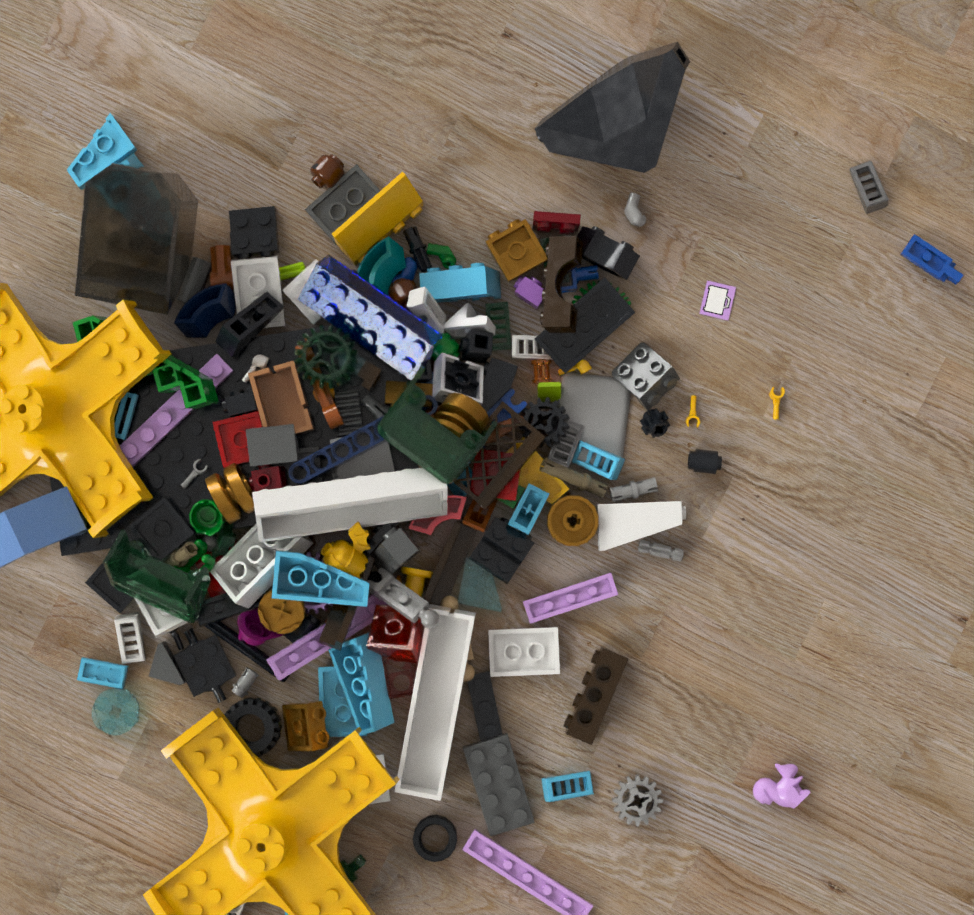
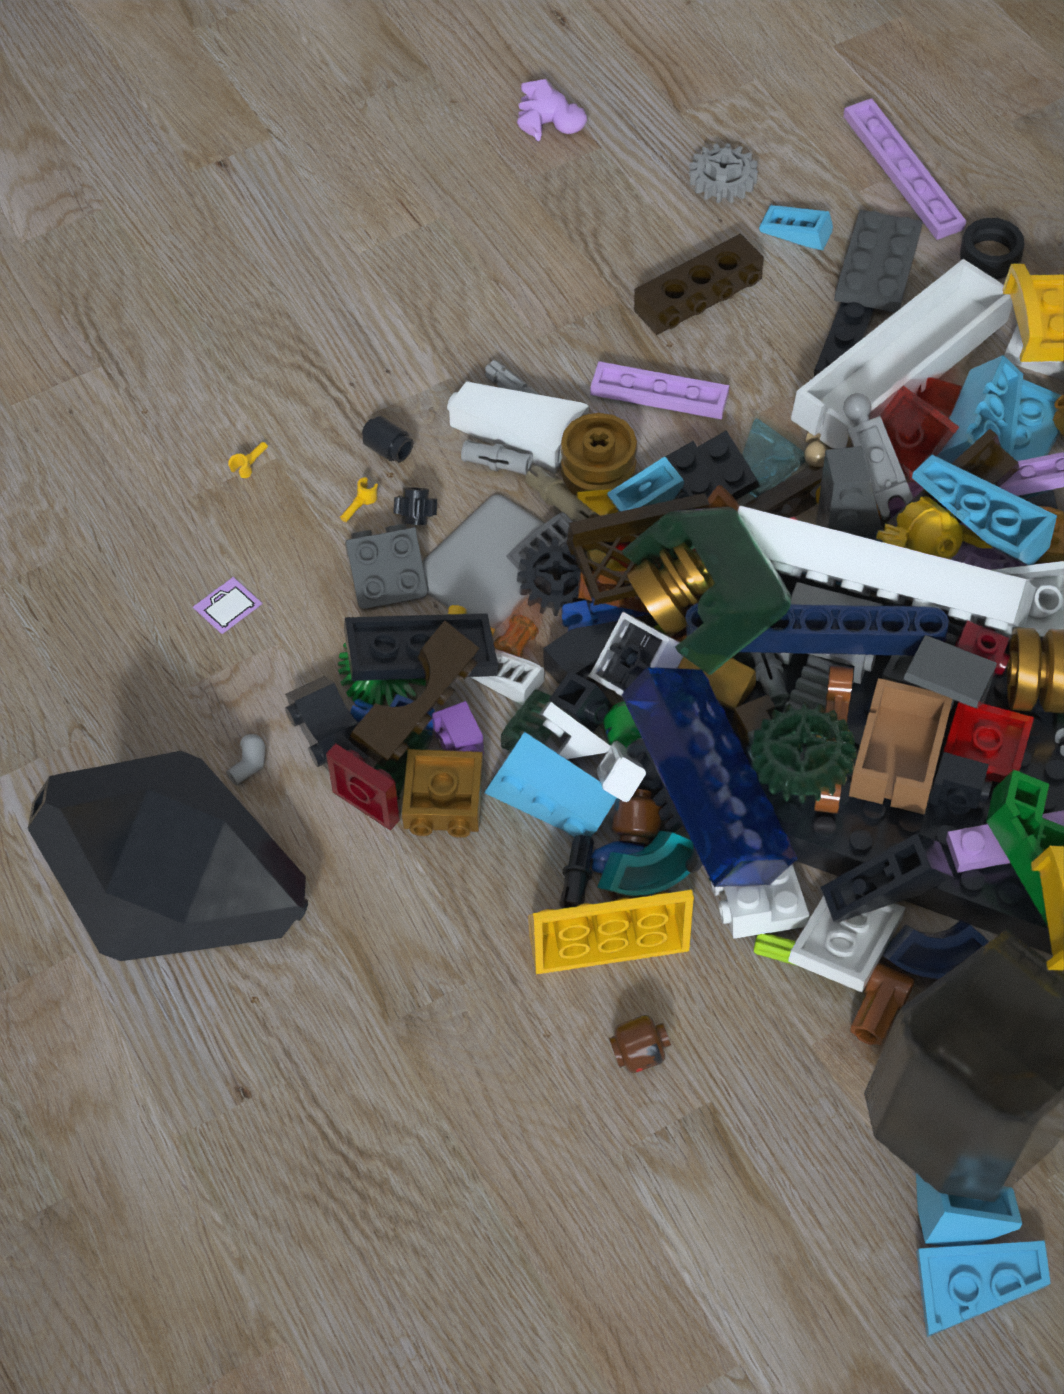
camera: 145 degrees left, 30 degrees down
(254, 232) = (803, 1028): black plate -> none
(258, 361) = (902, 826): white hand -> none
(342, 200) = (641, 982): dark grey plate -> none
(444, 253) = (543, 848): green arm -> none
(524, 651) = (756, 366): white plate -> none
(550, 390) = (510, 608): lime slope -> none
(615, 468) = (520, 492): medium azure slope -> none

